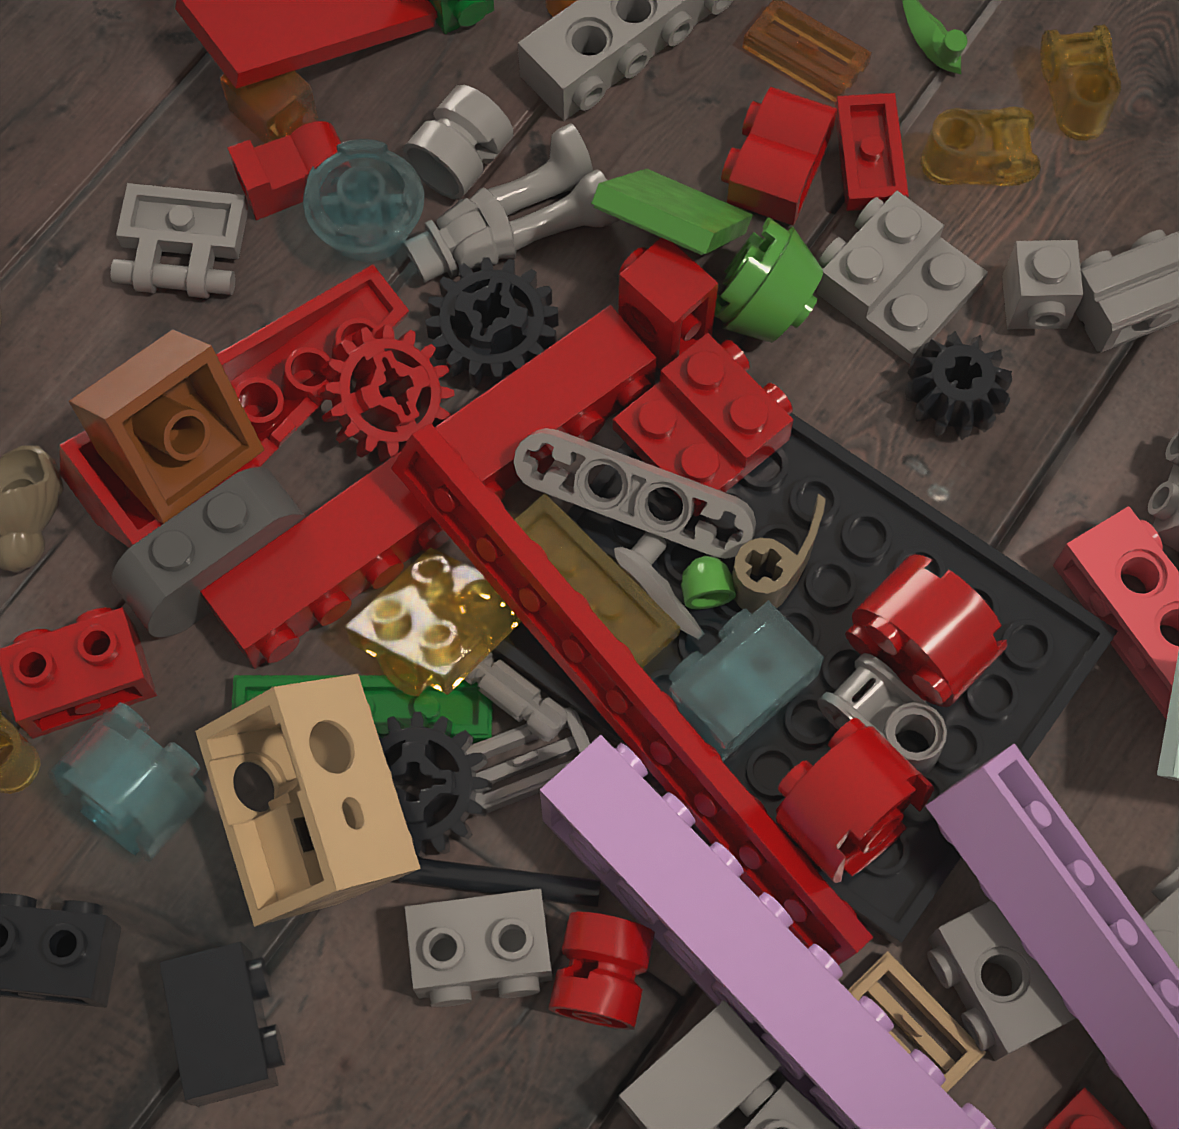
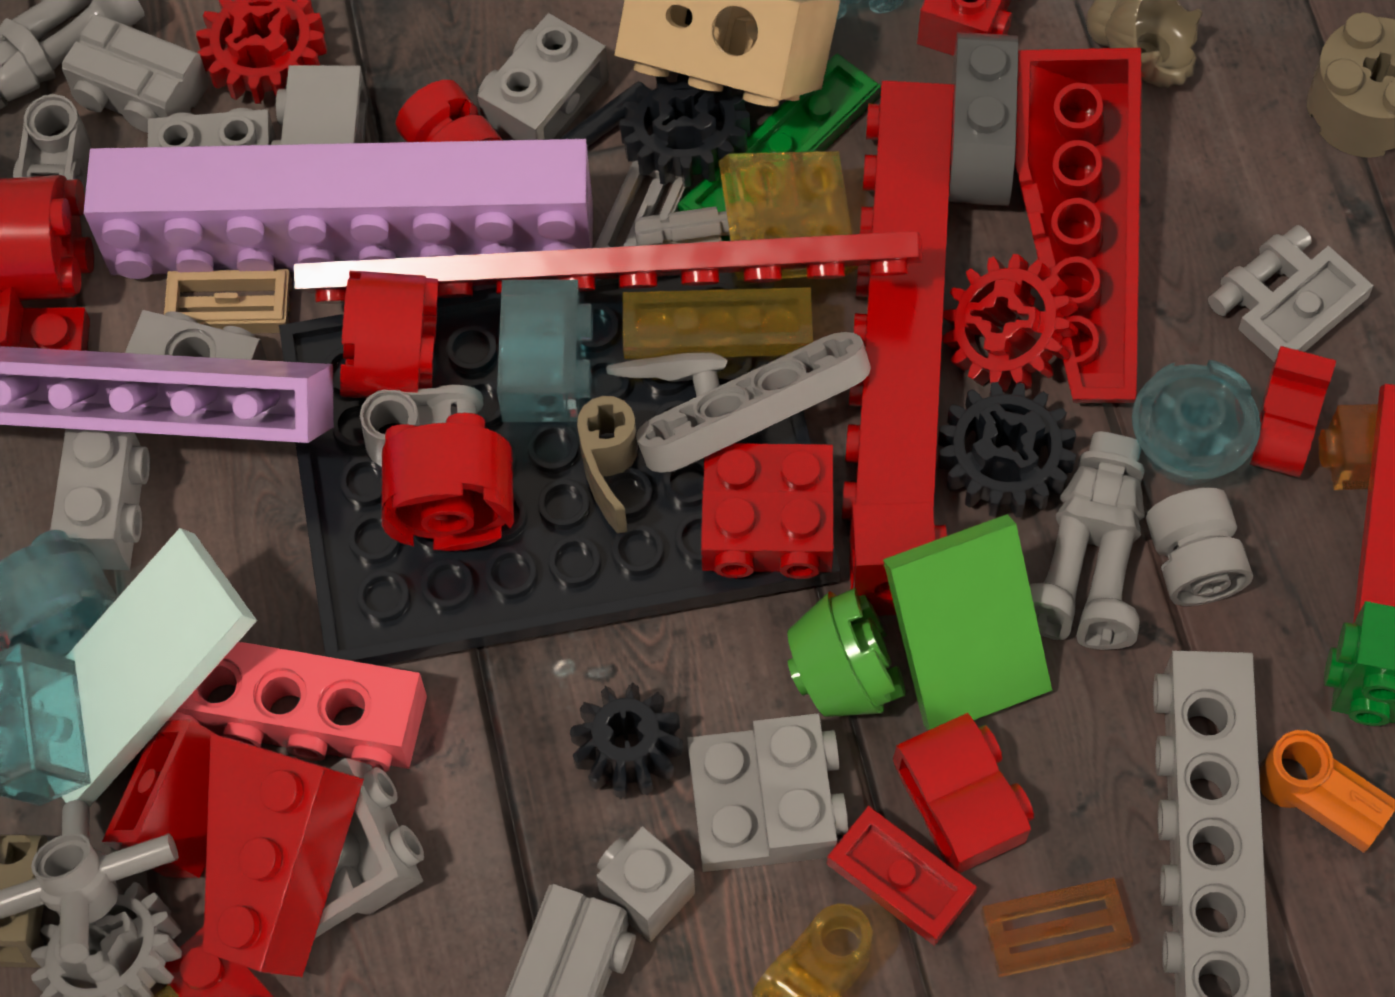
camera: 135 degrees right, 5 degrees down
(168, 423) = (1093, 116): dark orange slope -> none
(707, 583) = (643, 396): bright green hinge -> none

